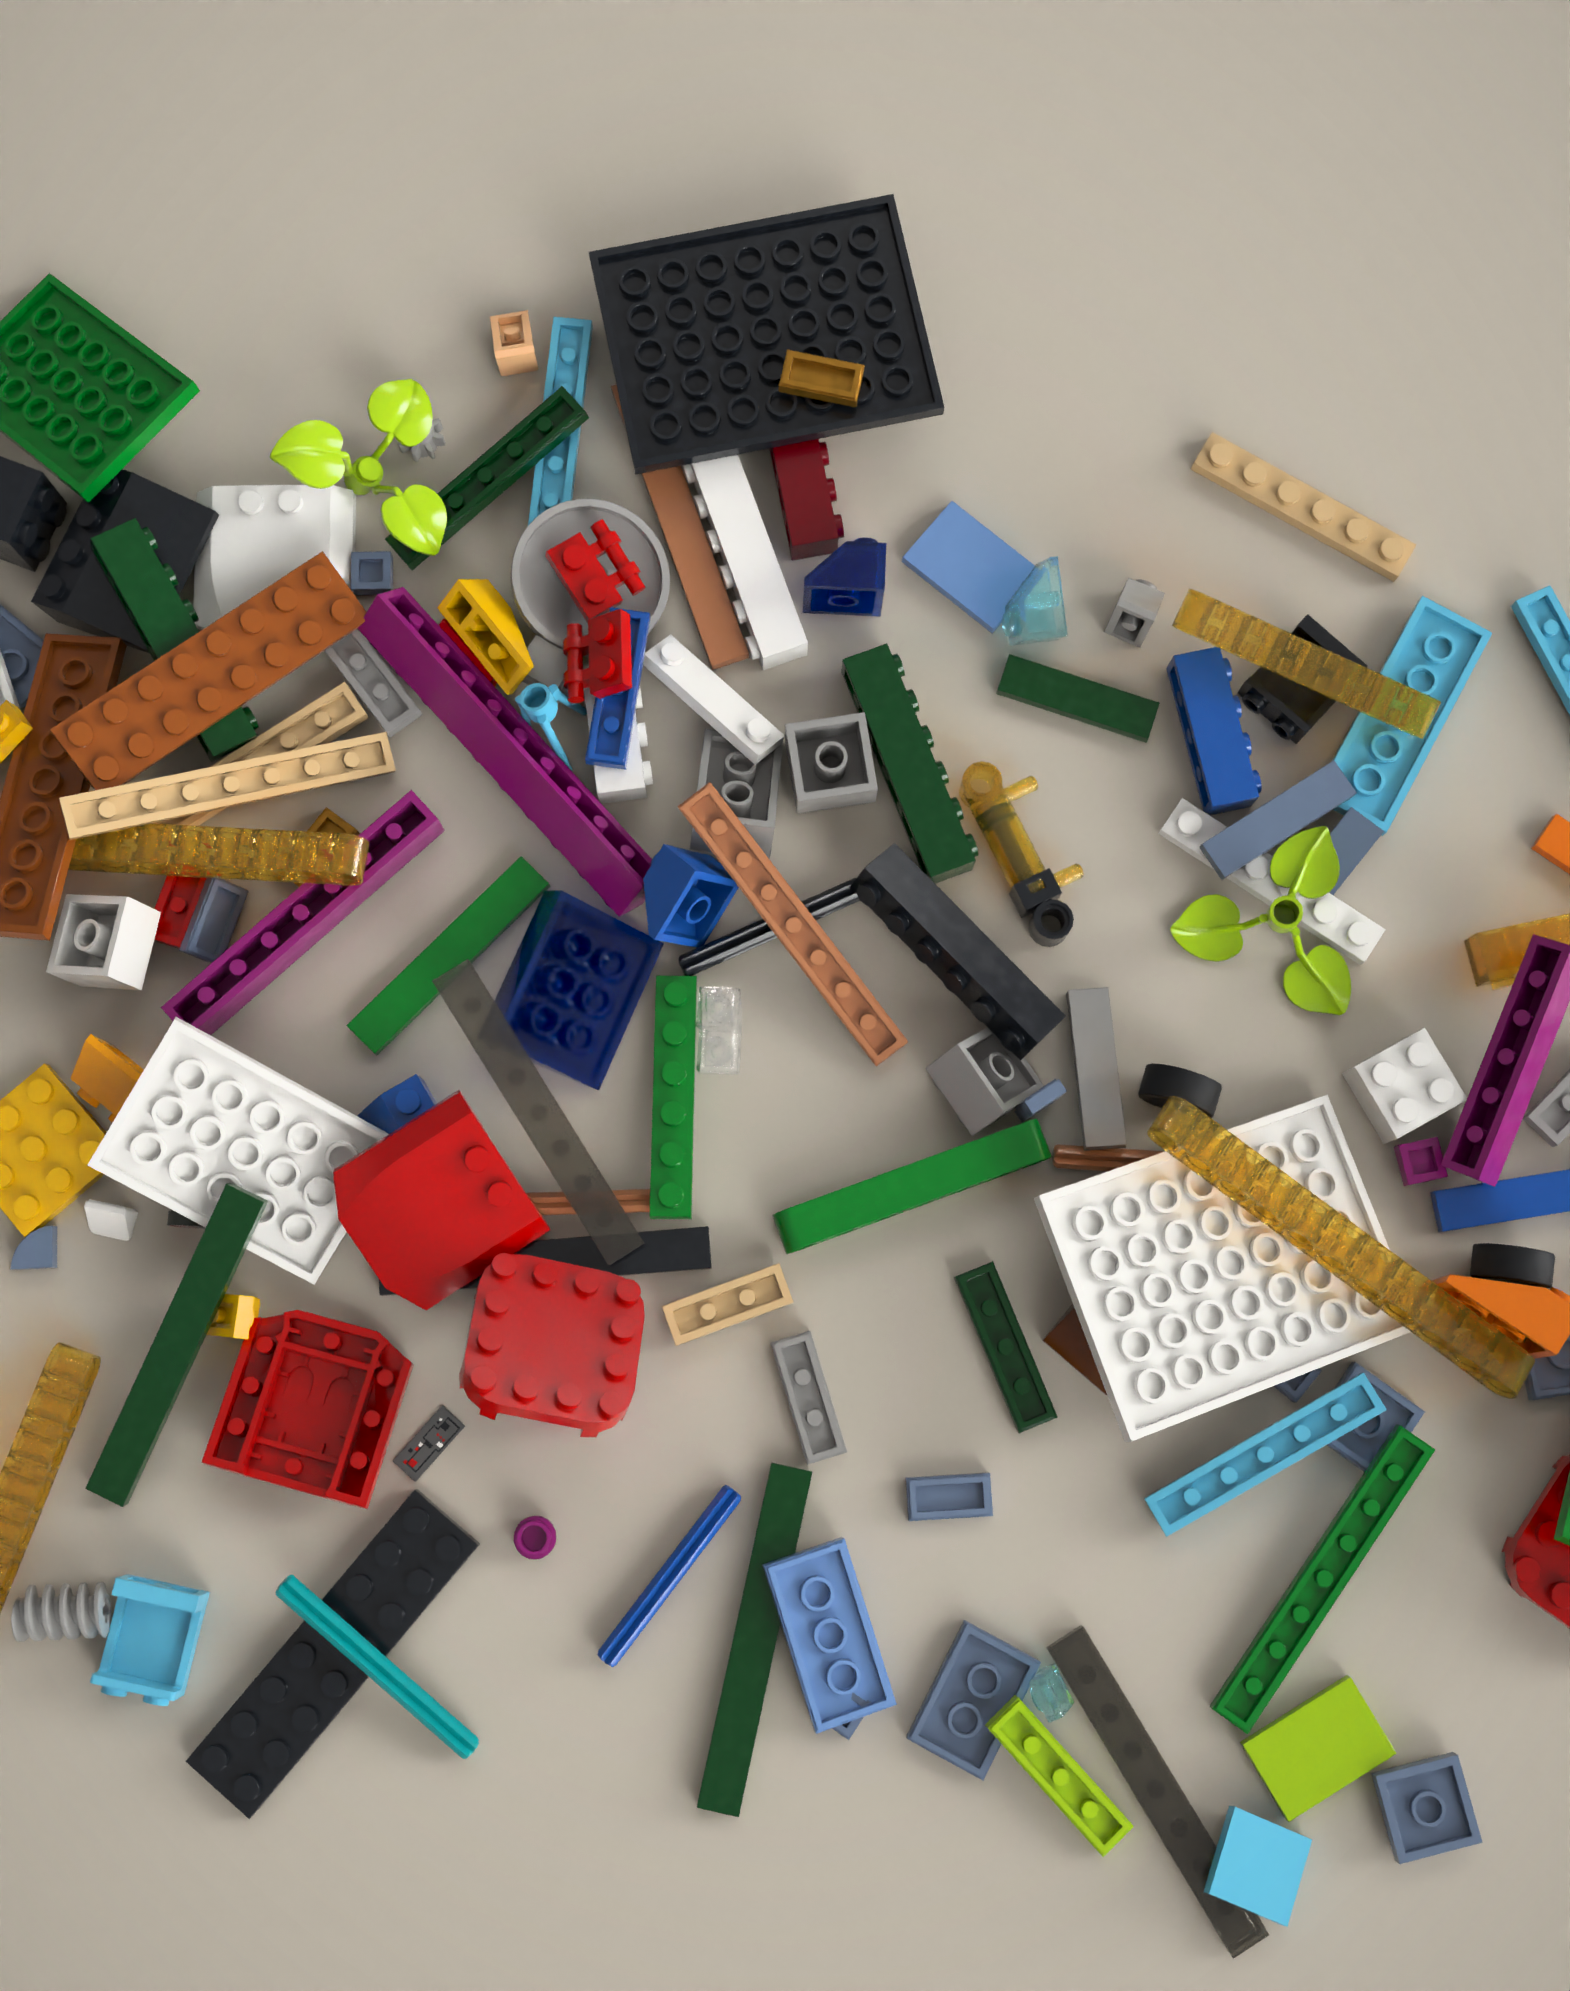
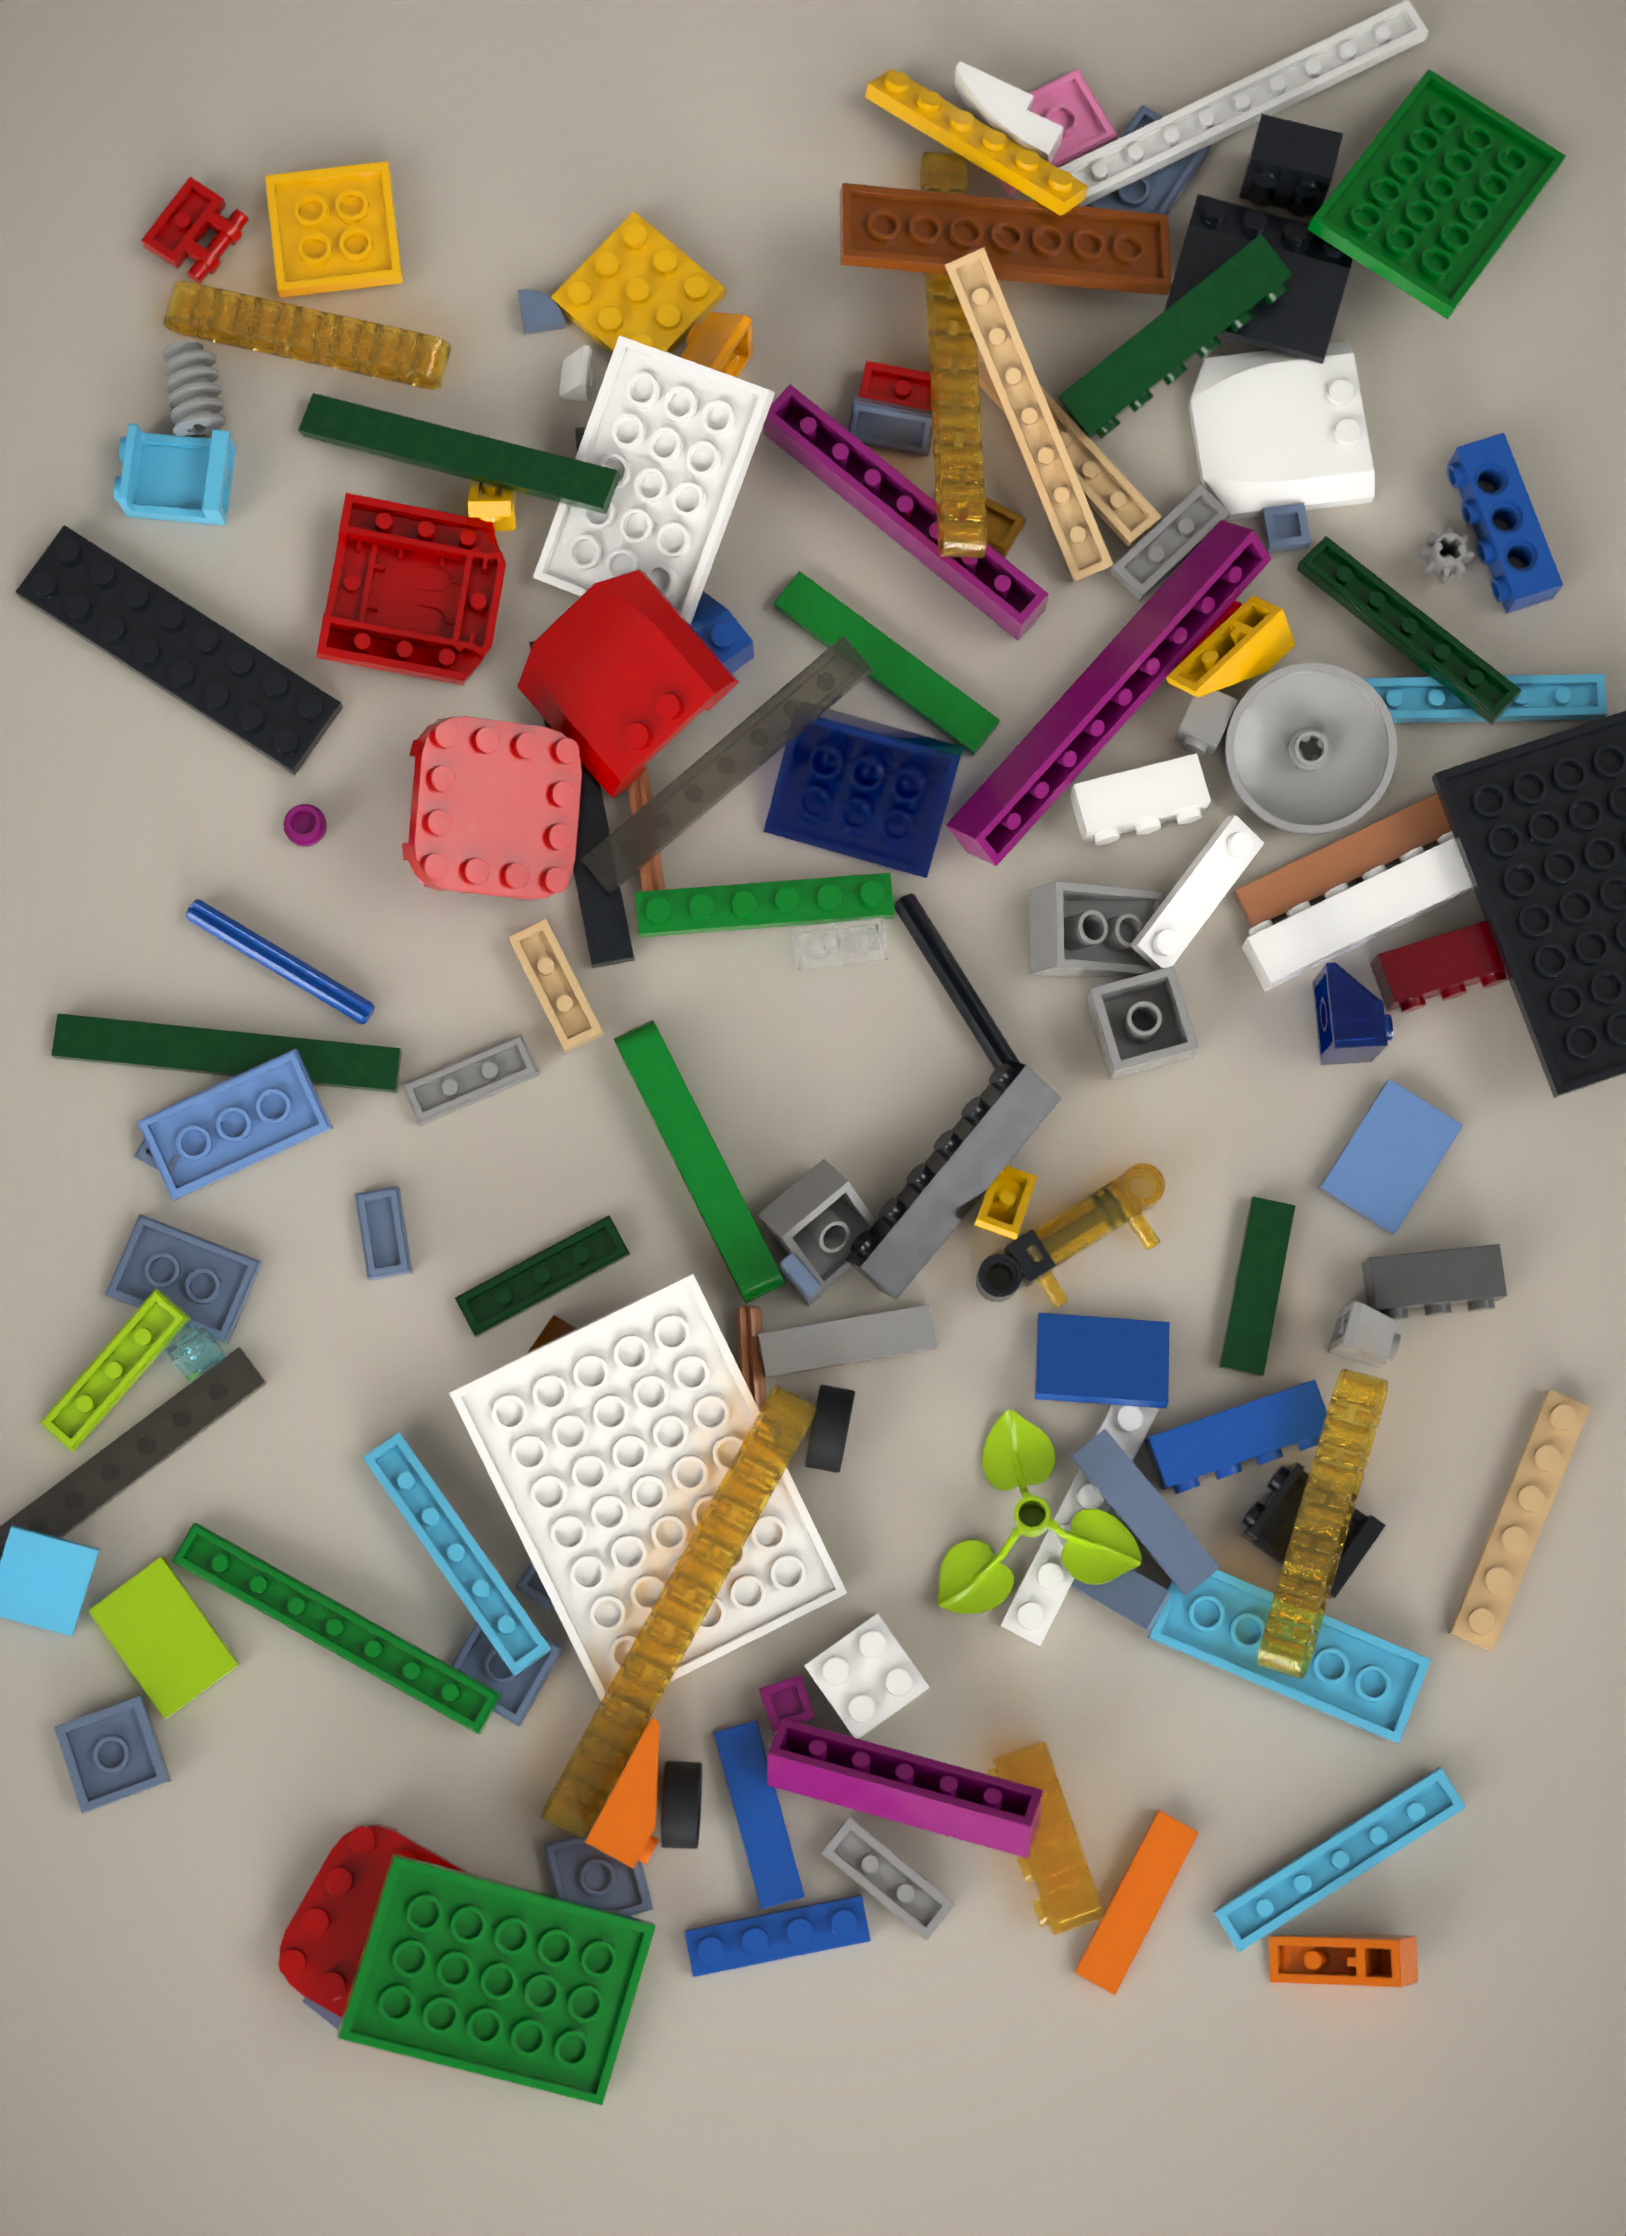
camera: 85 degrees right, 0 degrees up
(103, 941) = (852, 321): white brick -> none
(210, 674) = (1143, 379): dark orange plate -> none
(315, 458) = (1462, 520): lime plant -> none
(341, 377) = (1493, 462): none -> blue brick
(377, 1666) = (166, 688): teal axle -> none
(428, 1443) = (388, 712): dark grey sticker -> none
(513, 343) = (1567, 635): light nougat slope -> none
(540, 705) = (1155, 713): medium azure plant -> none
(584, 576) = (1306, 740): red plate -> none
(608, 652) = (1221, 771): red plate -> none
(615, 714) = (1190, 789): blue tile -> none
(685, 895) = (974, 887): blue slope -> none
(792, 923) = (958, 1000): nougat tile -> none
(821, 378) = (1568, 957): pearl gold tile -> none
(908, 764) = (1153, 1108): dark green brick -> none
(988, 906) = (1006, 1203): none -> yellow slope
(1037, 607) = (1349, 1225): clear light blue slope -> none
(1090, 545) = (1435, 1281): none -> dark grey brick
(1135, 841) = (1102, 1360): none -> blue tile

